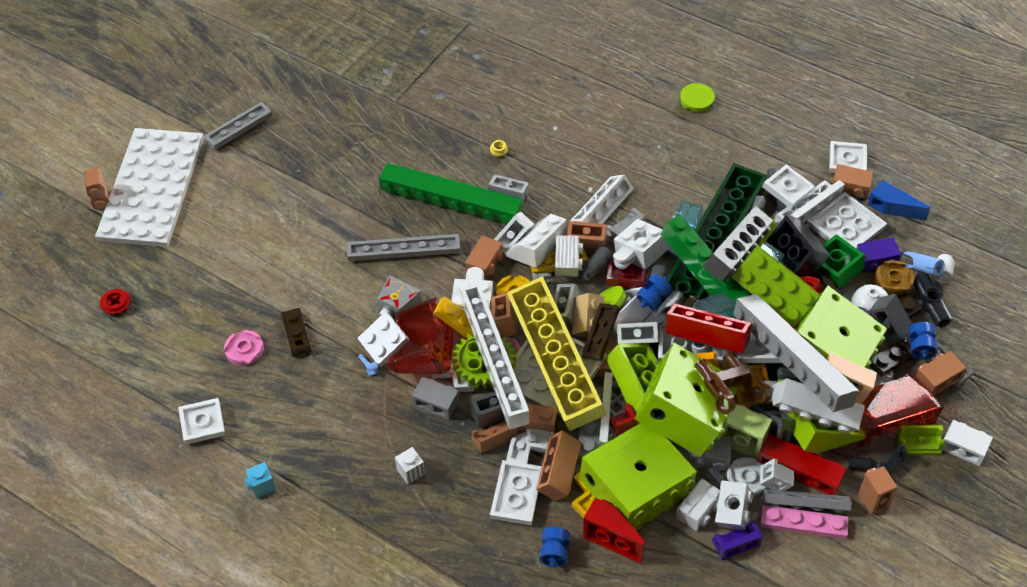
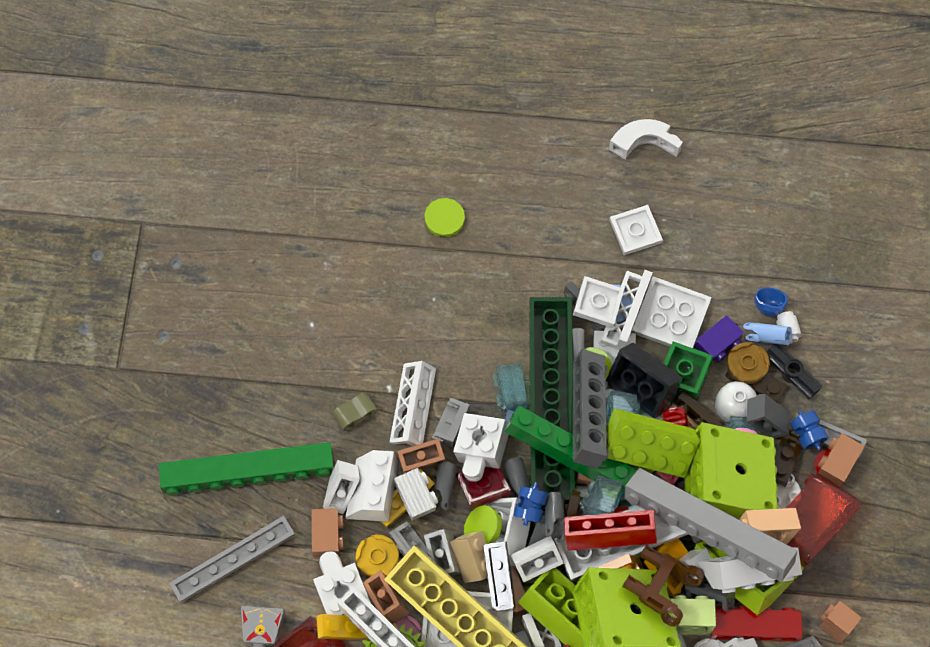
camera: 30 degrees left, 15 degrees up
(499, 148) = (267, 377): light yellow plate -> none
(509, 186) = (306, 432): light grey hinge -> none
(553, 190) = (354, 411): none -> olive axle
(856, 180) = (656, 258): nougat brick -> none
(866, 464) = (826, 594): black pin -> none
(887, 98) = (644, 132): none -> white arch
(895, 202) = (704, 265): blue slope -> none
(921, 439) = (851, 541): lime hinge -> none
(936, 245) = (770, 301): none -> blue piece
(966, 442) = (893, 522): white brick -> none

